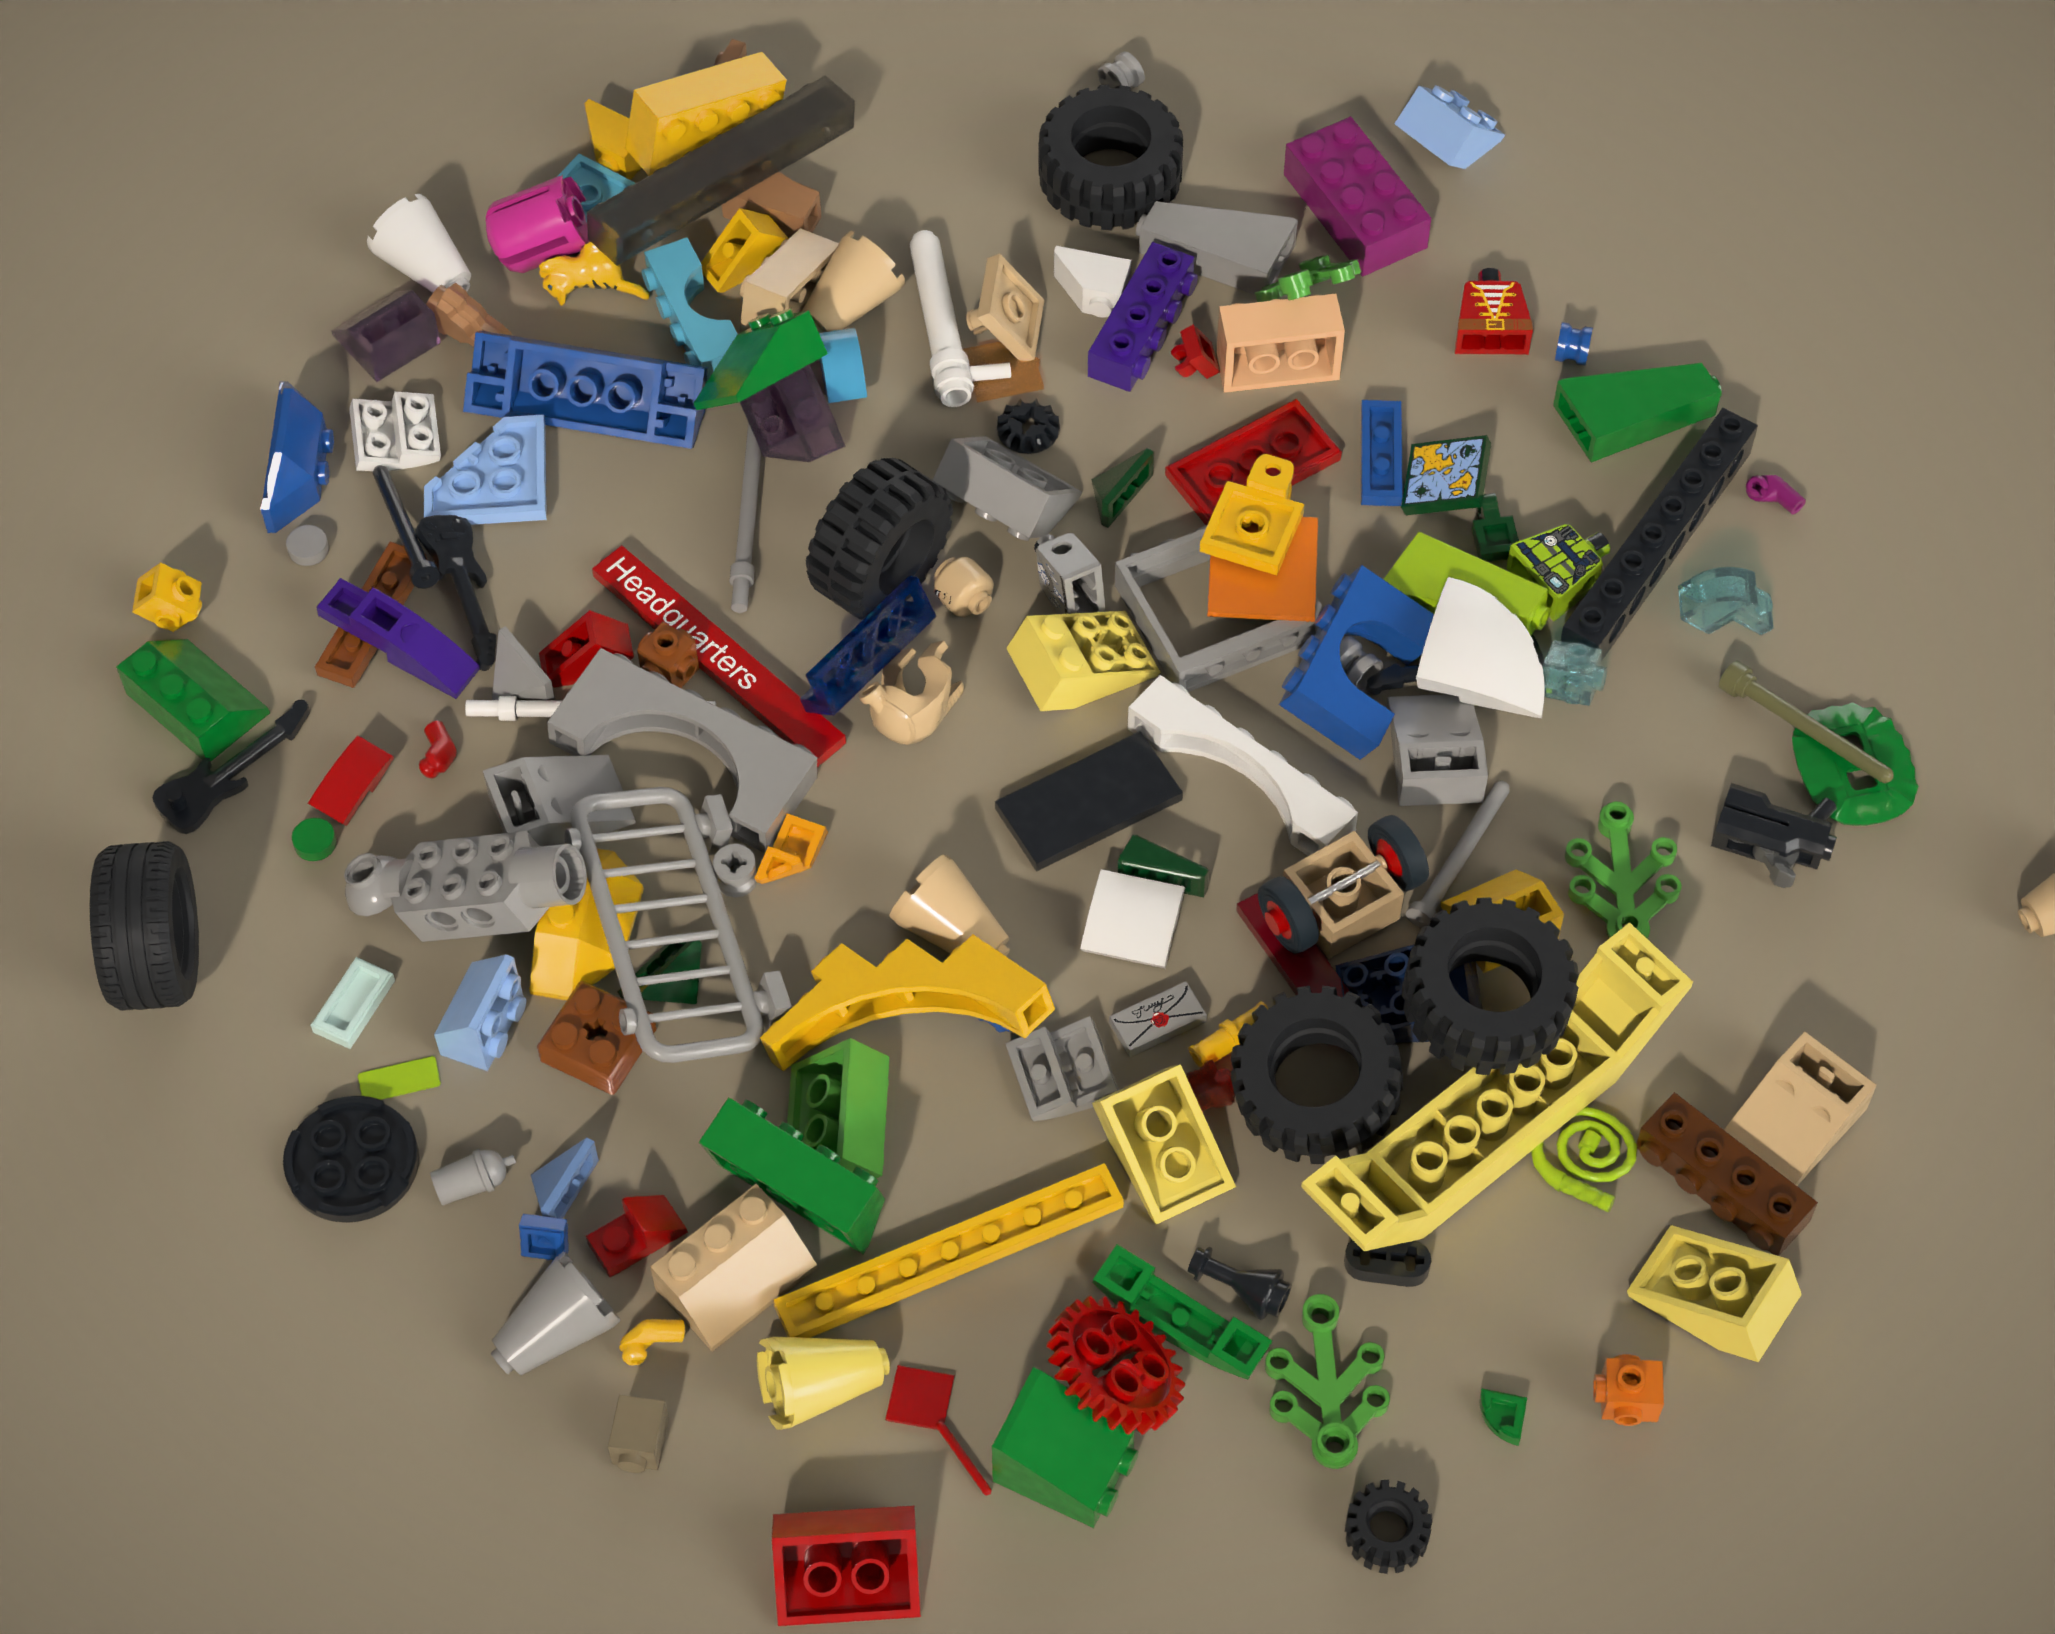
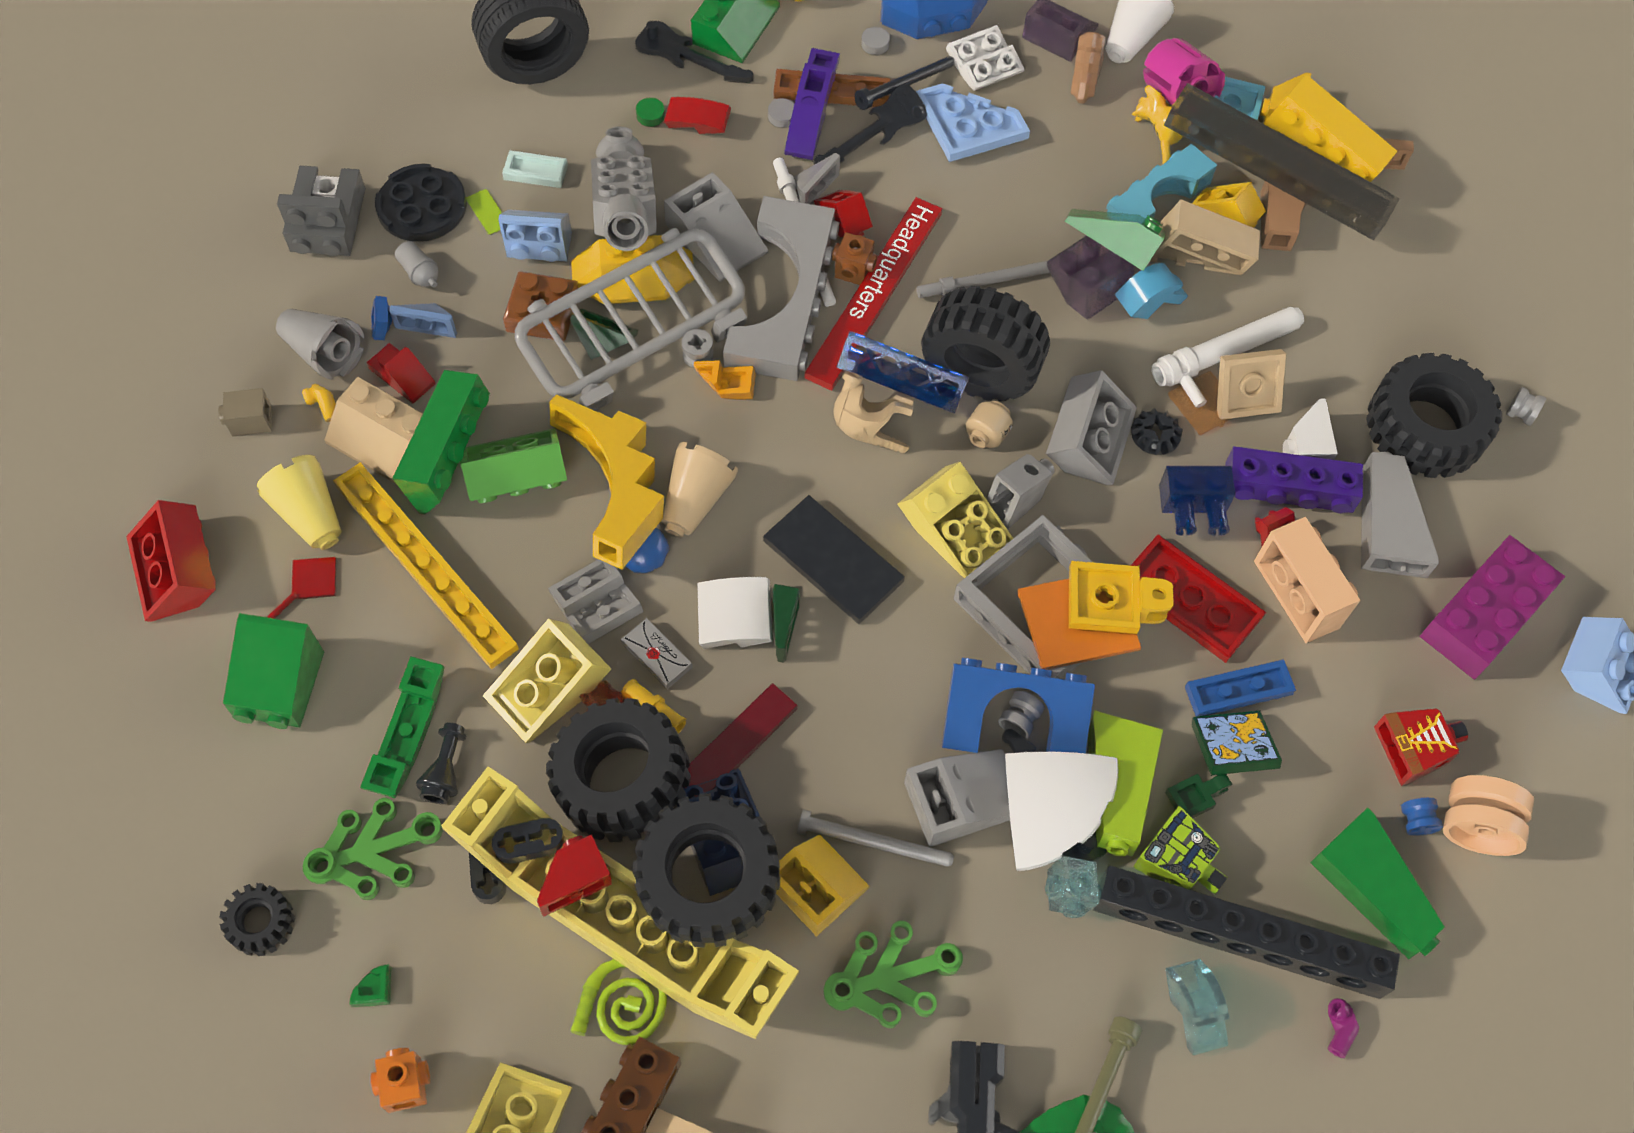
camera: 70 degrees right, 5 degrees up
(350, 1295) = (322, 211): none -> dark grey brick
(384, 684) = (780, 112): none -> light grey tile
(441, 752) = (739, 158): red arm -> none
(585, 389) = (1062, 148): blue slope -> none
(852, 284) = (1223, 277): tan cone -> none
(1121, 484) = (1125, 507): dark green slope -> none
(1125, 411) = (1198, 490): none -> clear blue brick
(1134, 1392) = (320, 713): red gear -> none
(1180, 723) = (865, 714): white arch -> none
(1312, 272) = (1397, 597): bright green plant -> none
(1345, 889) = (794, 750): brick -> none
(1401, 1176) = (526, 832): none -> black beam
(1450, 1132) = (574, 874): none -> red slope
(1595, 282) = (1488, 815): none -> light nougat wheel

